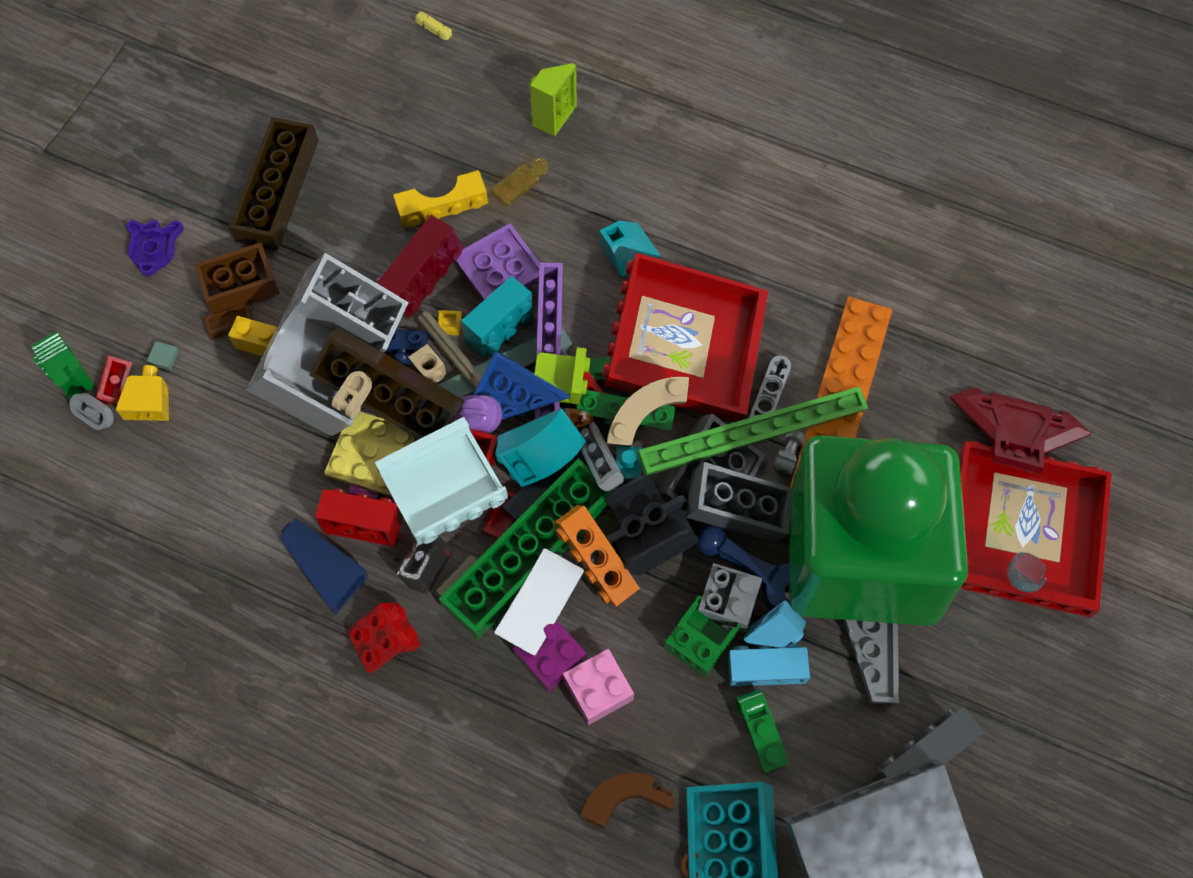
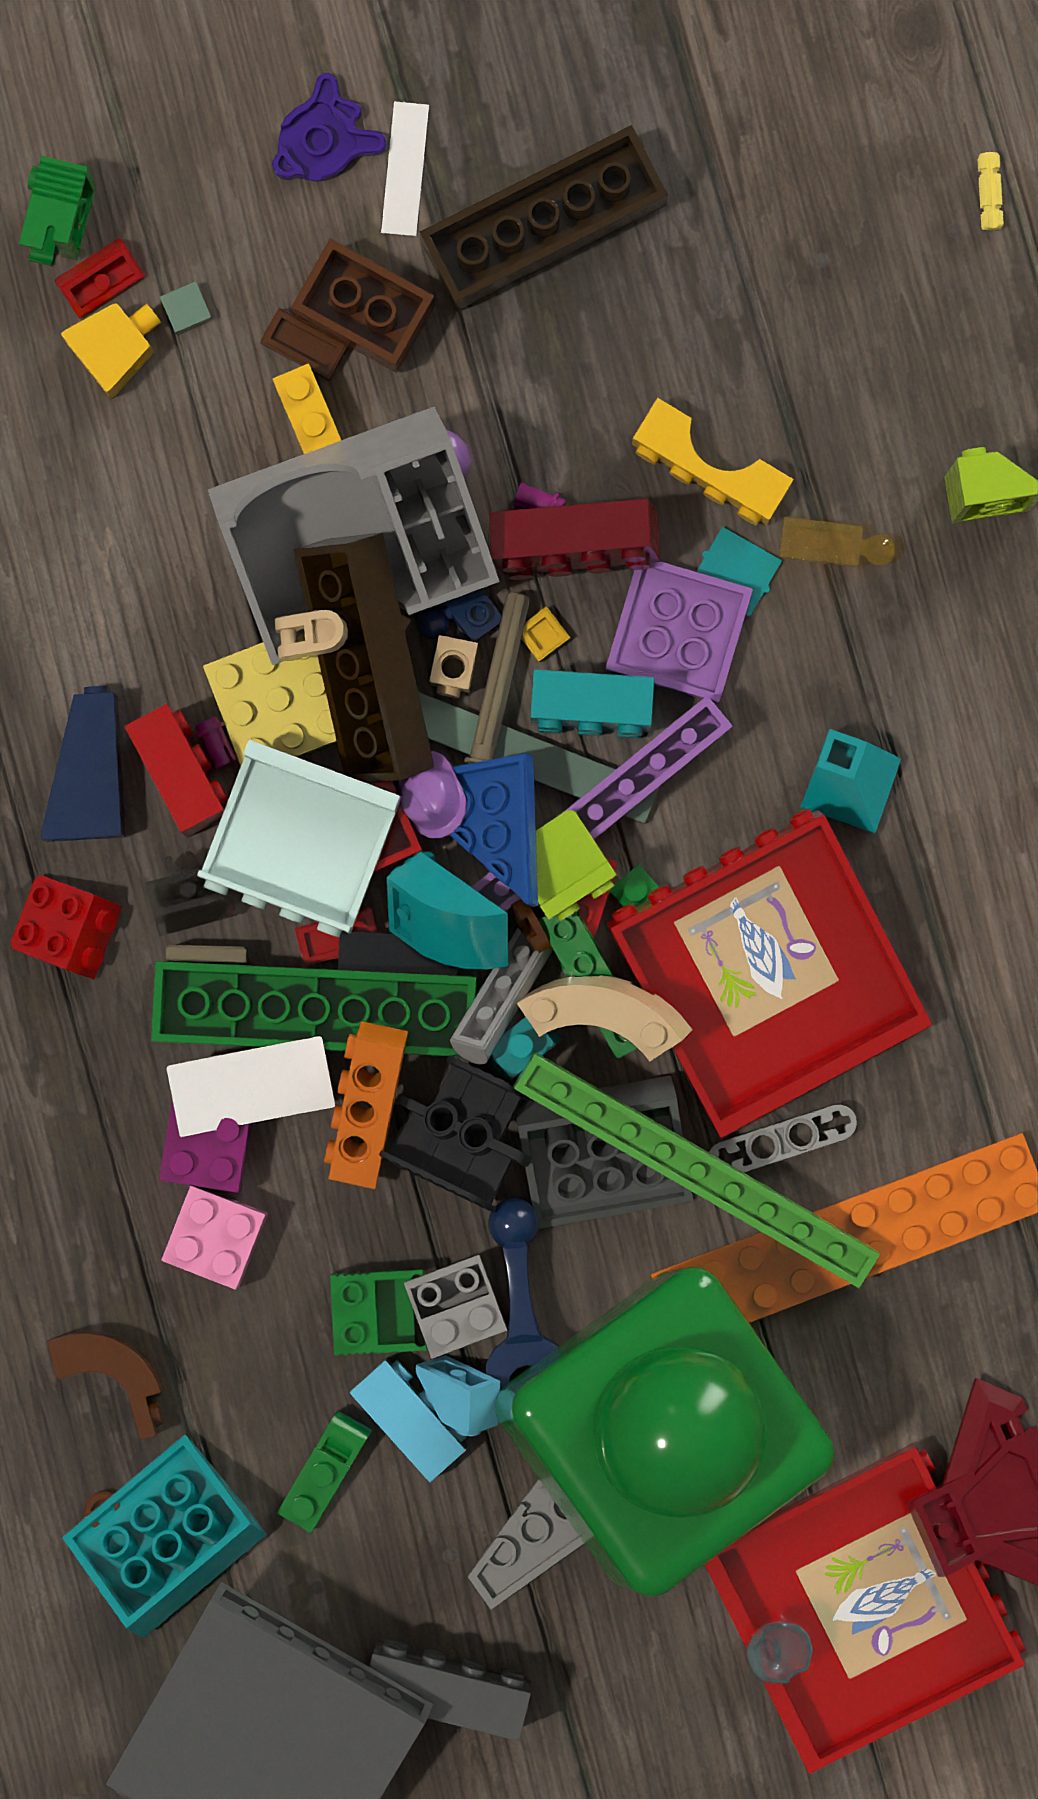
camera: 55 degrees right, 20 degrees up
(93, 413) = (37, 296): light grey plate -> none
(199, 226) = (405, 168): none -> white sticker
(492, 222) = (740, 563): none -> teal piece
(739, 502) = (583, 1226): dark grey brick -> none
(786, 458) = (706, 1232): light grey leg -> none

